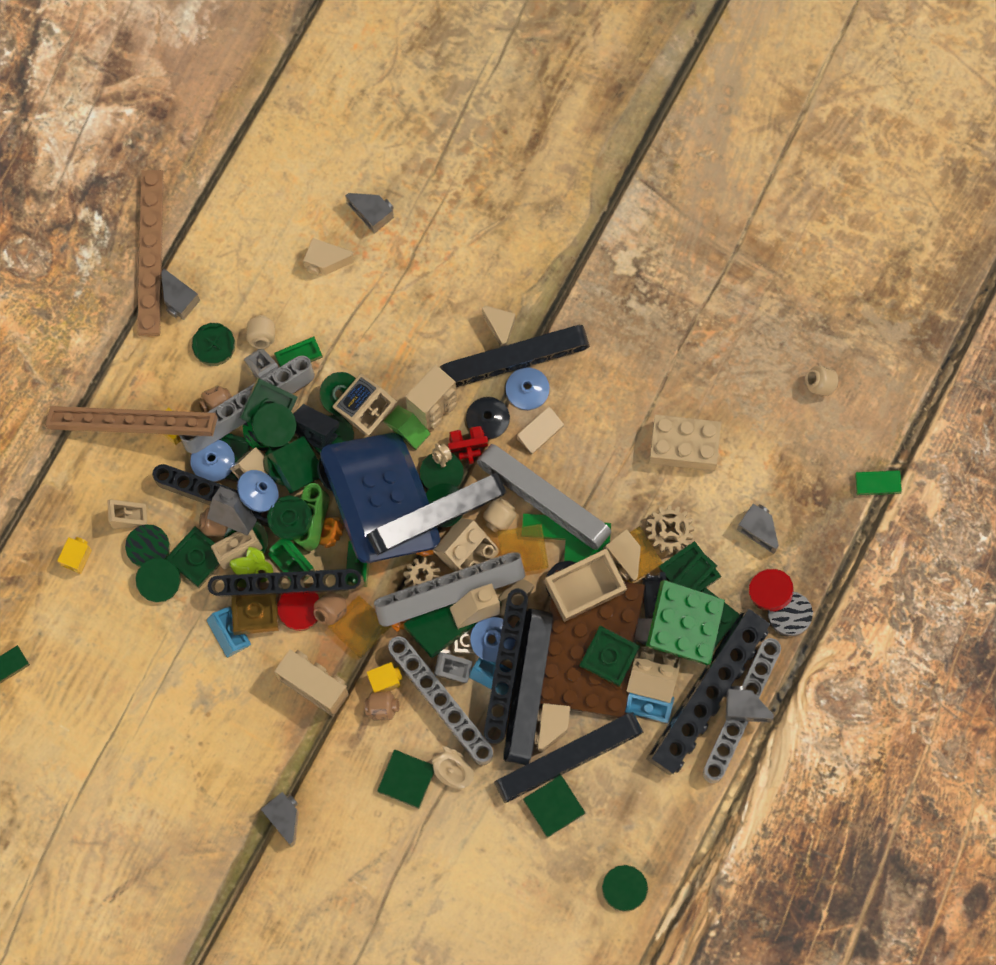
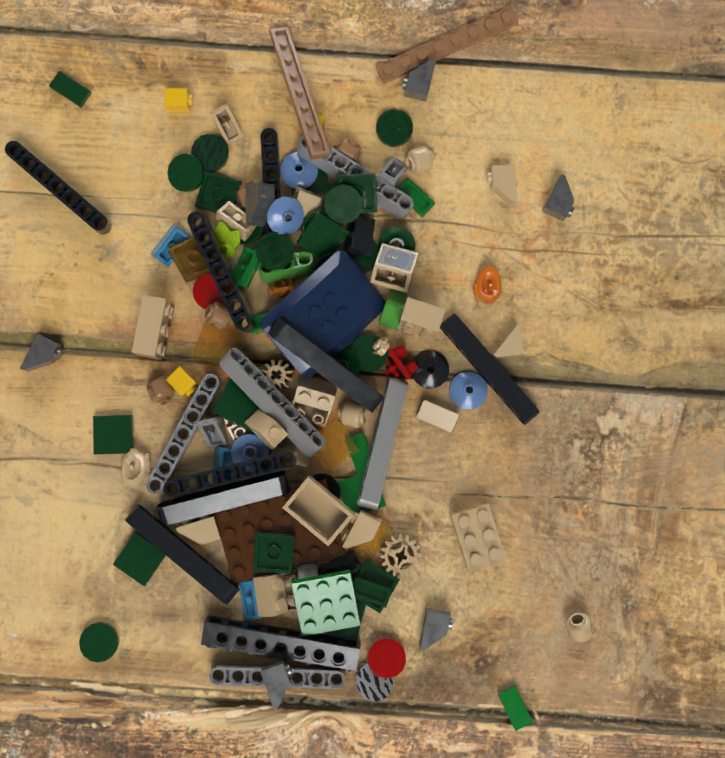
camera: 60 degrees right, 10 degrees up
(97, 723) = (50, 184): none -> black beam
(426, 320) = (487, 285): none -> orange hat

